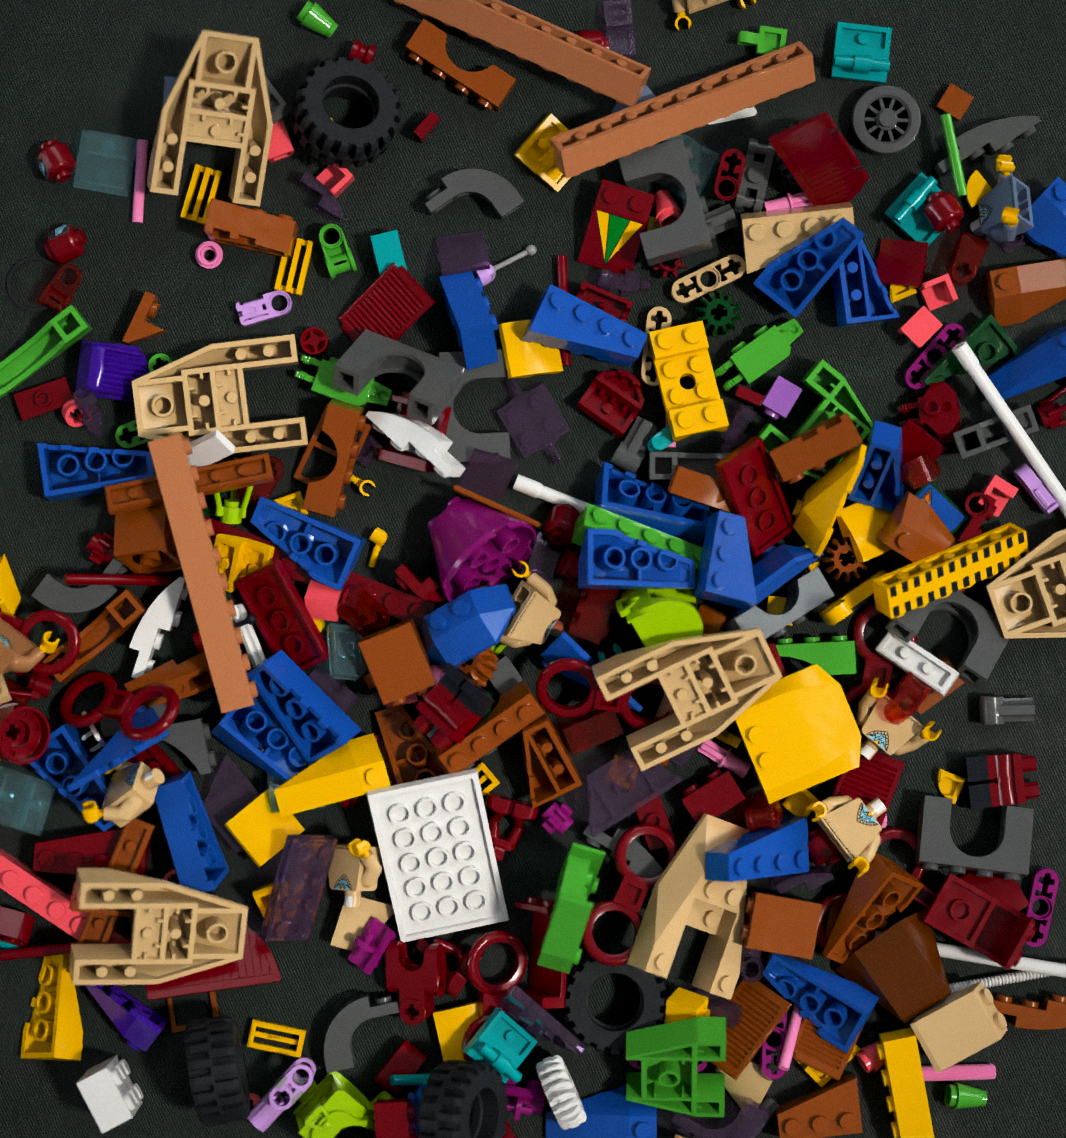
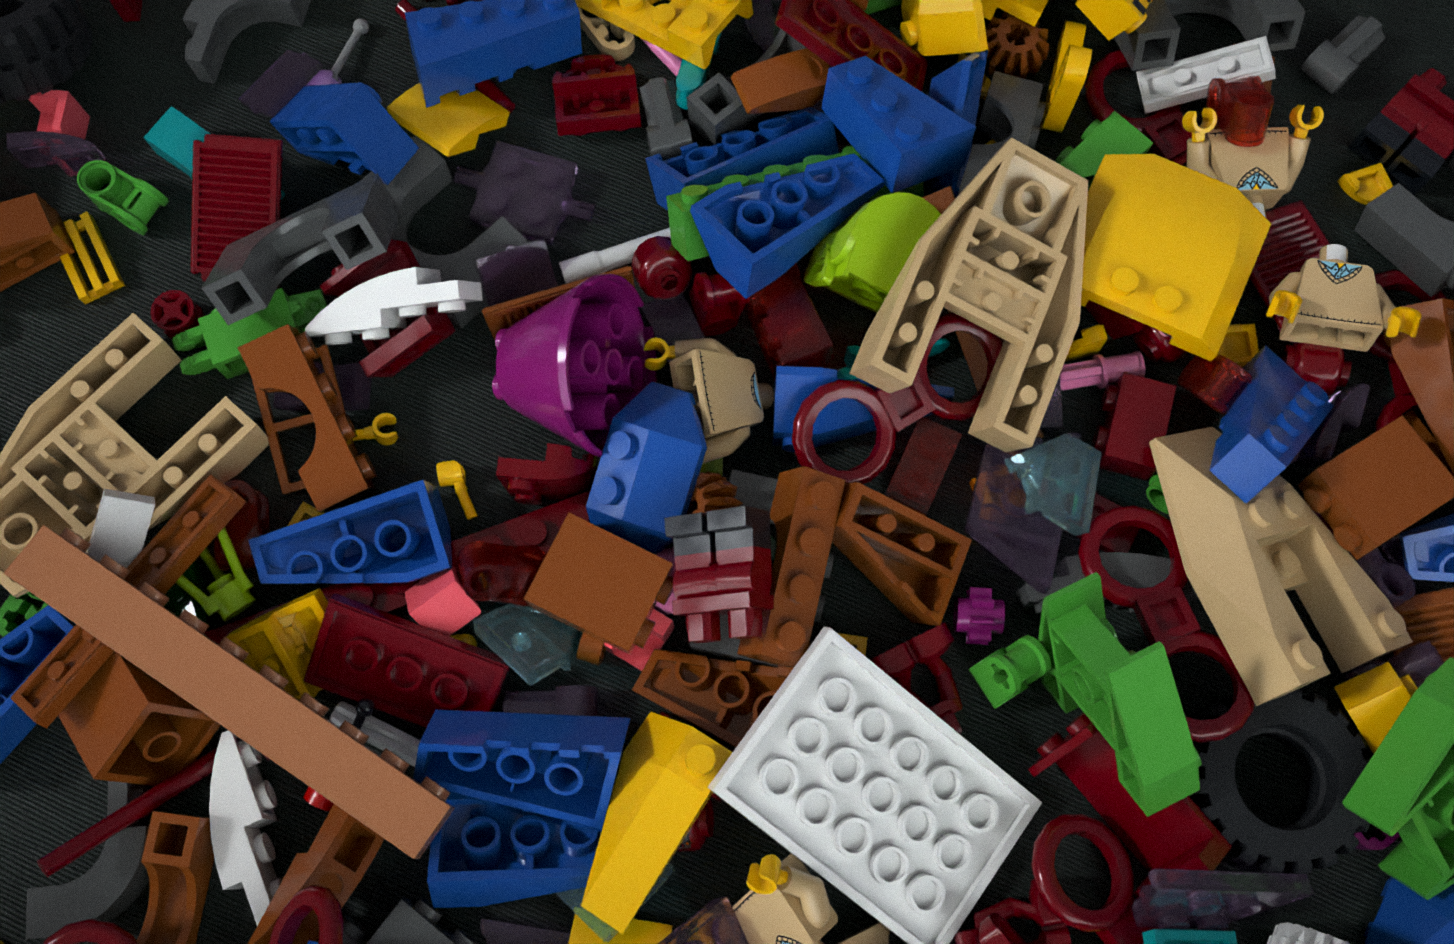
camera: 40 degrees left, 15 degrees down
(101, 548) = (83, 794): dark red gear -> none
(261, 309) = (81, 332): lavender piece -> none
(546, 854) = (1011, 670): none -> bright green piece
(646, 794) = (1059, 481): none -> clear light blue slope

